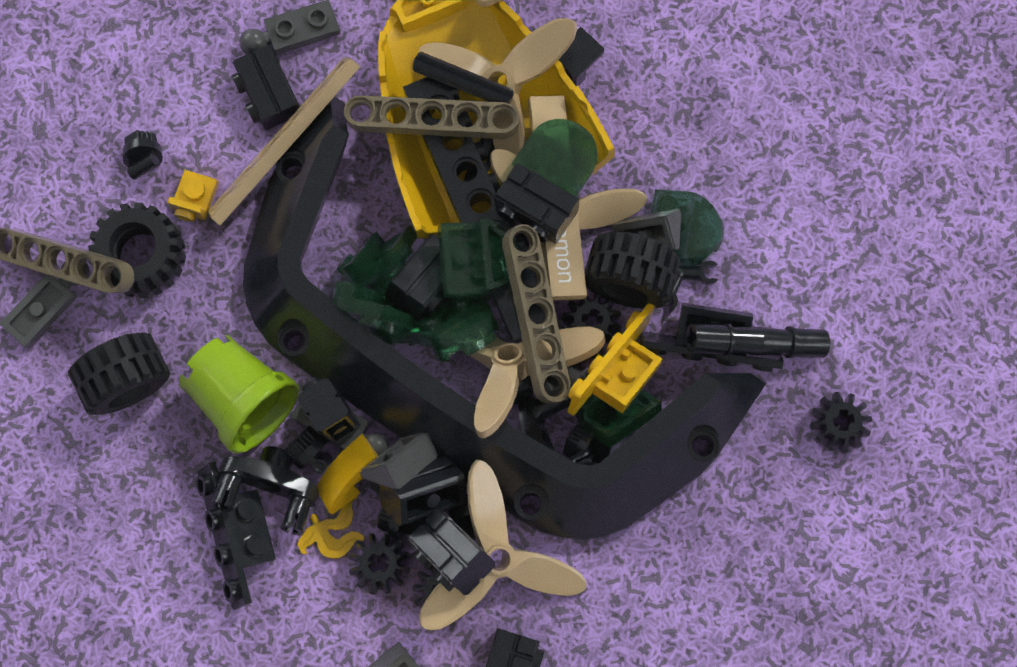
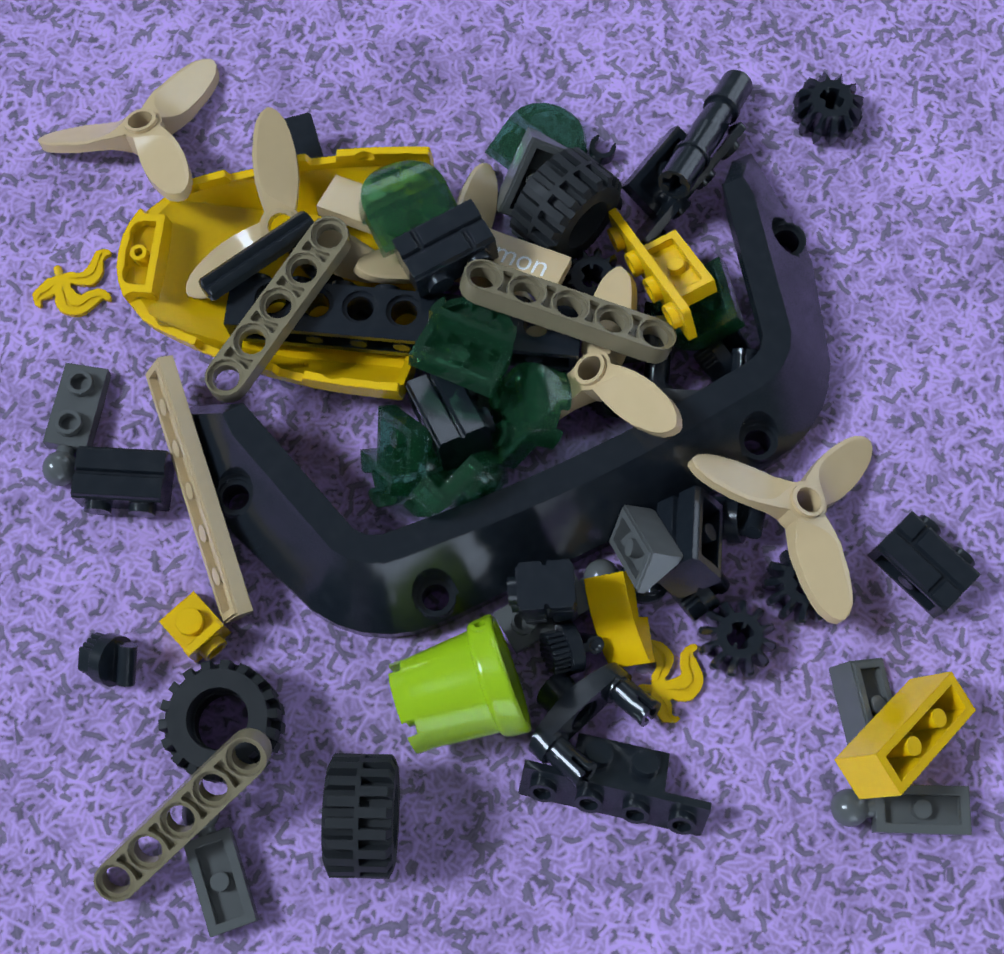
camera: 65 degrees left, 5 degrees down
(451, 552) = (777, 542): black brick -> none

